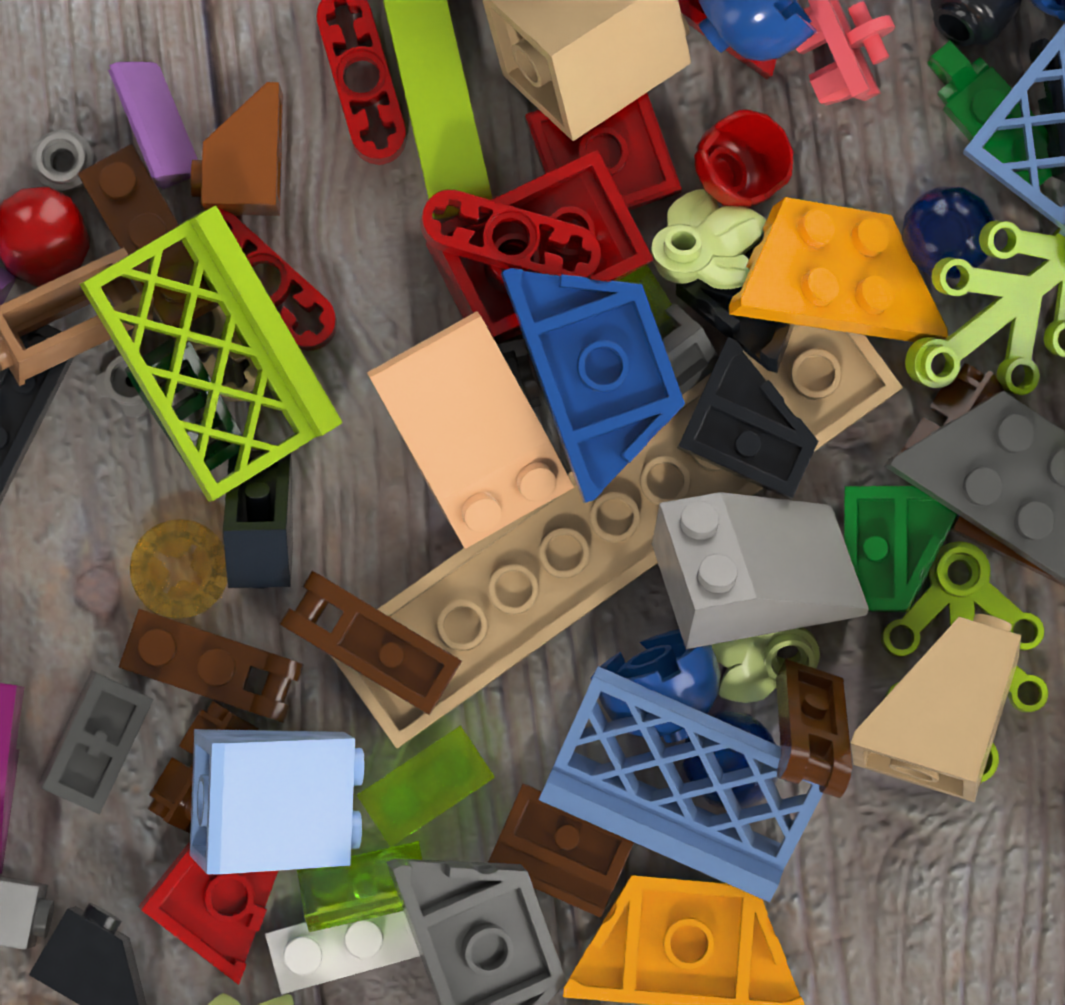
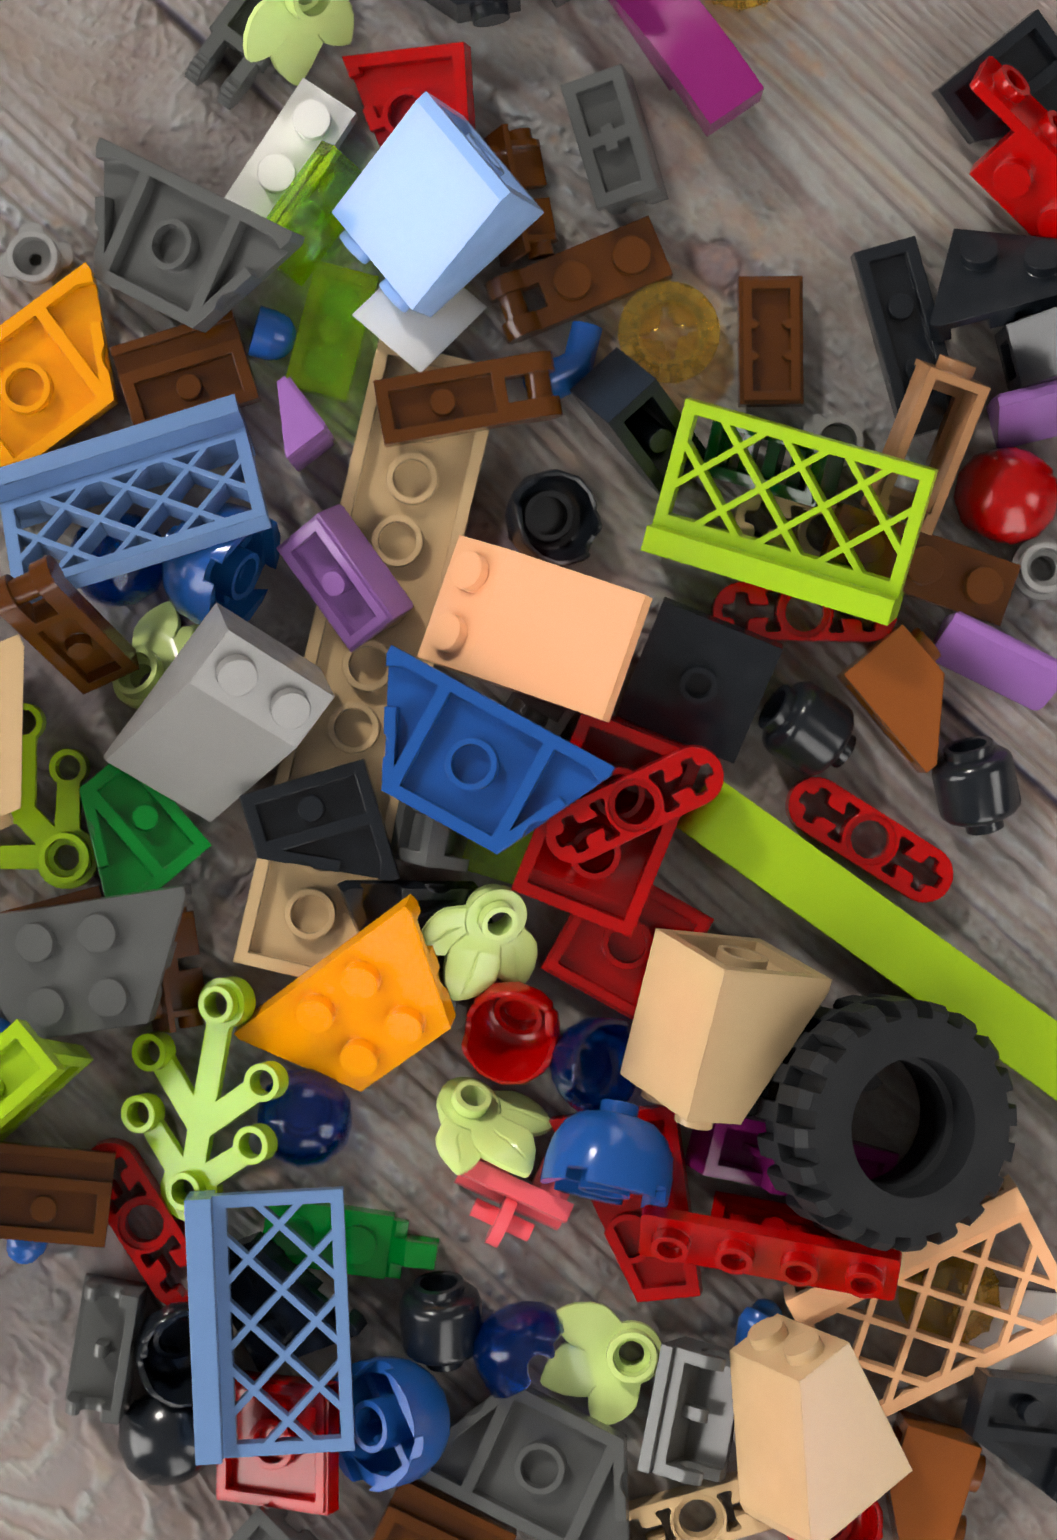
camera: 140 degrees right, 5 degrees up
(112, 496) = (770, 341): none -> reddish brown plate
(250, 45) = (976, 785): none -> black head
(263, 607) = (577, 359): none -> blue arm
(335, 192) = (807, 728): none -> black head
(369, 722) = (413, 334): none -> white sticker
(381, 294) = (699, 679): none -> black plate
(385, 504) = (553, 517): none -> black hair
(473, 824) = (272, 335): none -> blue hinge
(508, 728) = (302, 428): none -> medium lavender slope
(575, 593) = (345, 576): none -> medium lavender slope
(706, 88) = (590, 1061): none -> clear blue hair
(817, 101) = (495, 1127): none -> yellowish green plate

